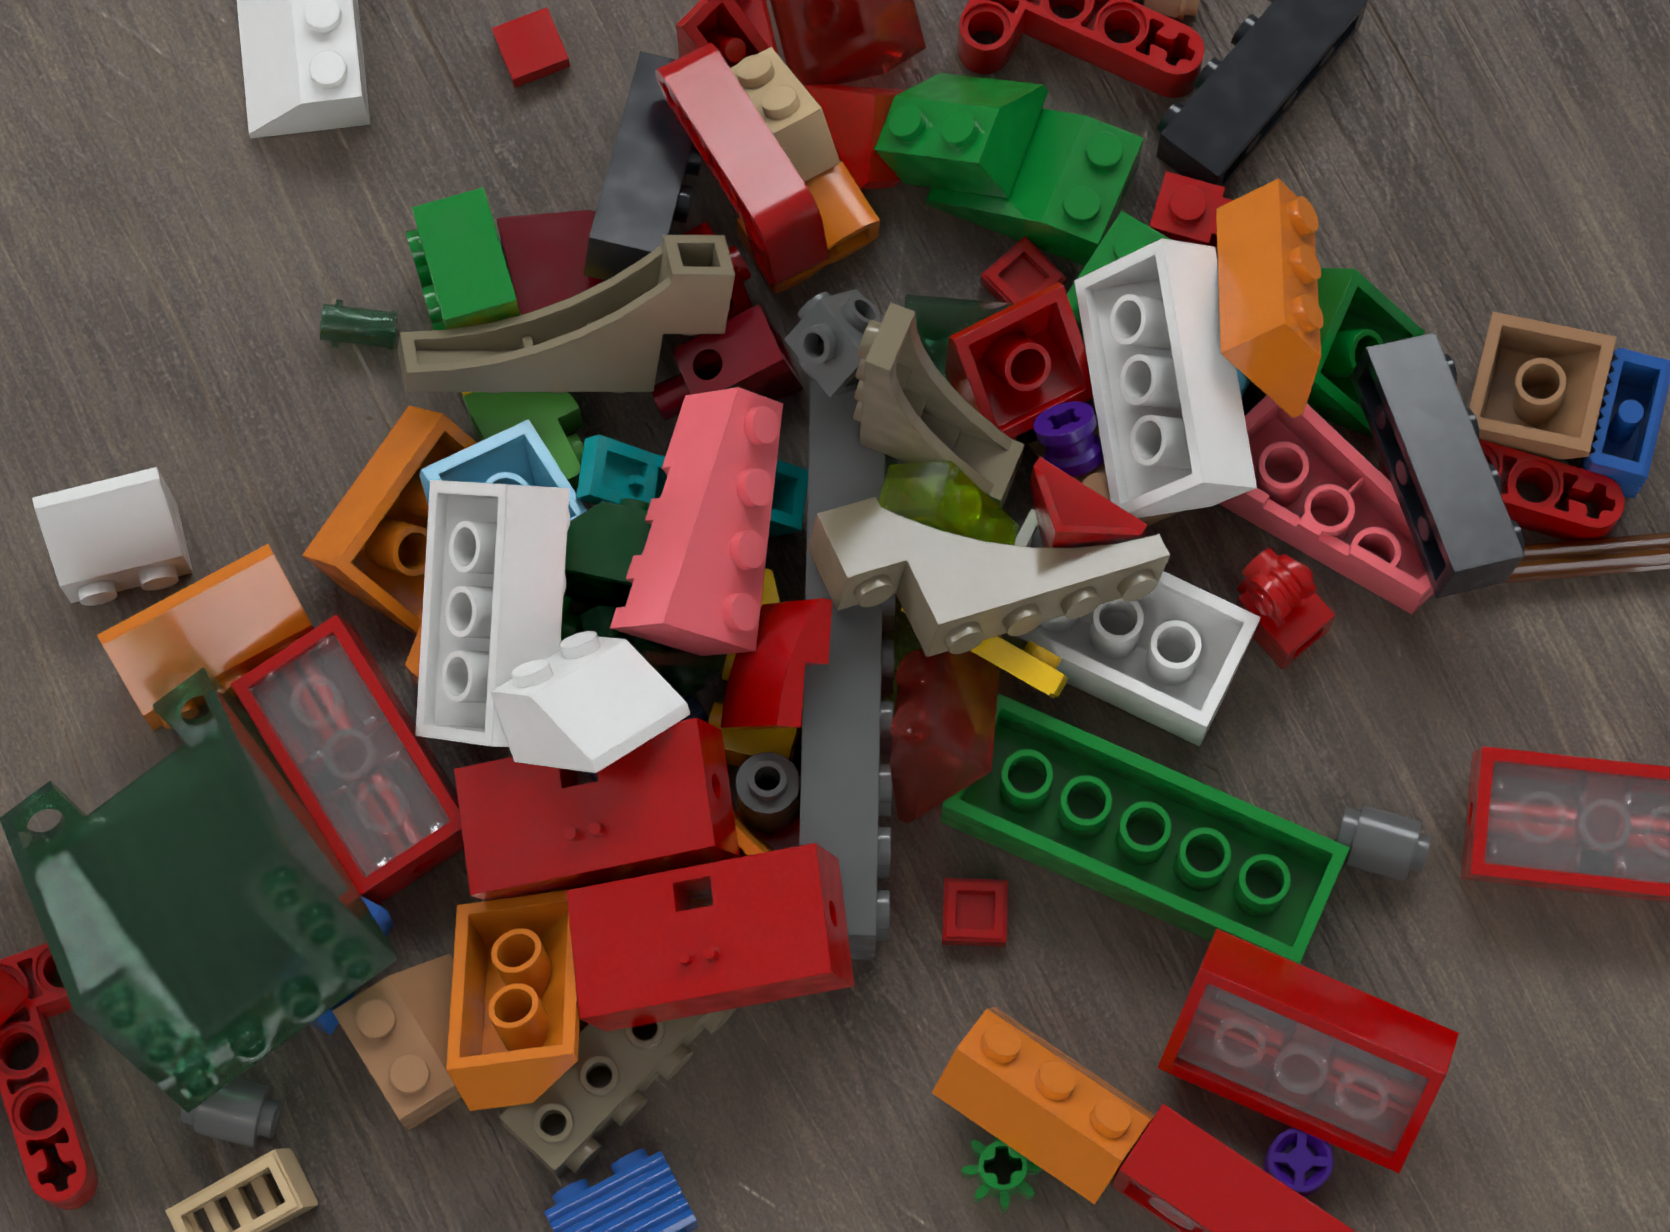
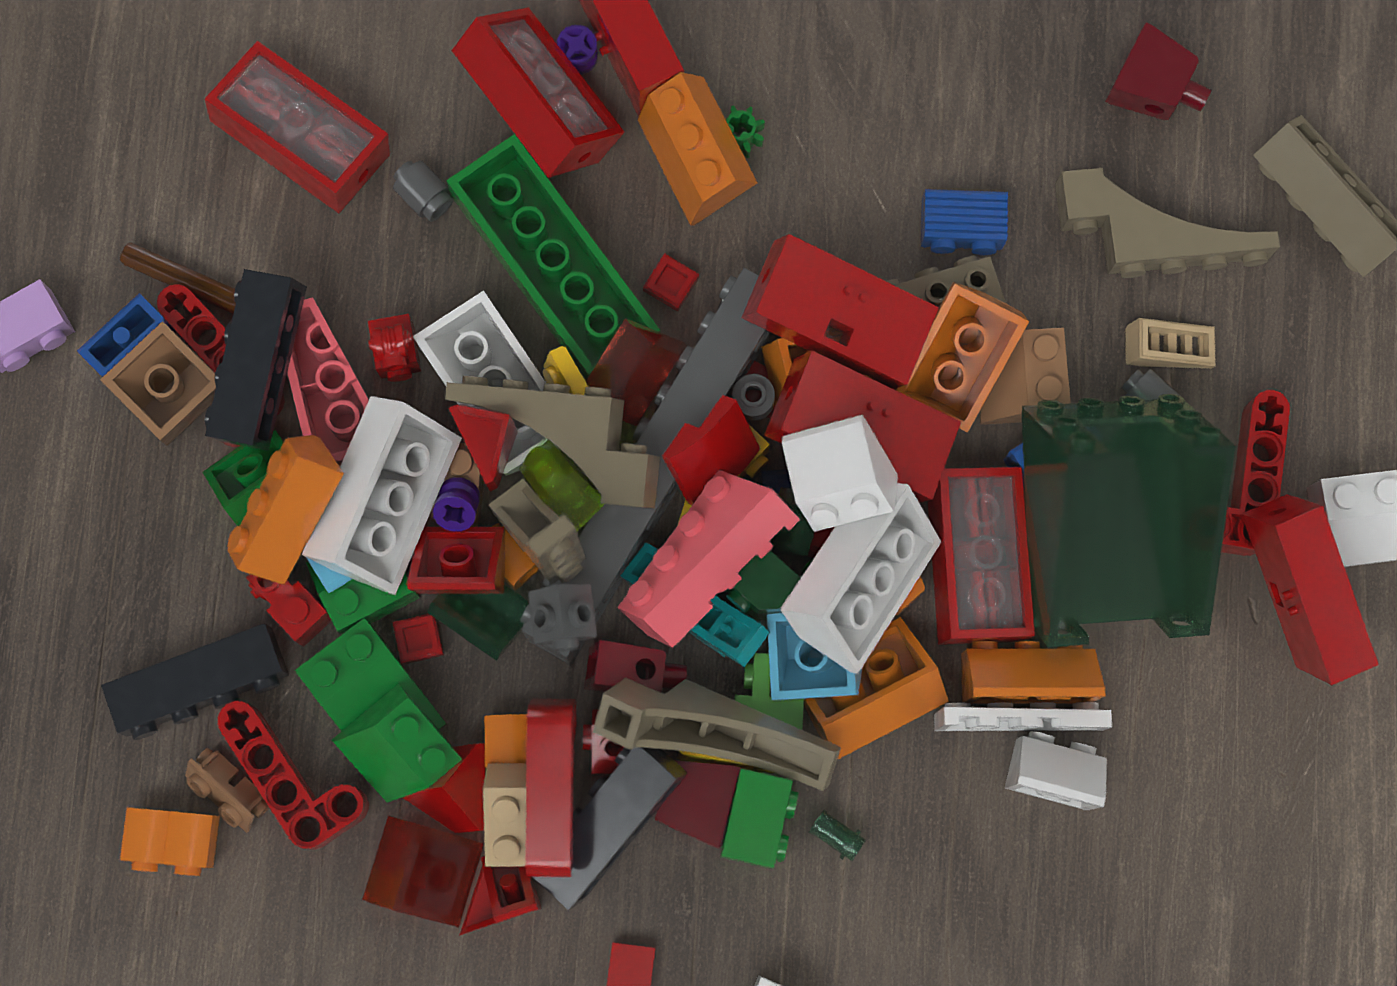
camera: 155 degrees left, 5 degrees up
(282, 530) = (1040, 717): none -> white wing

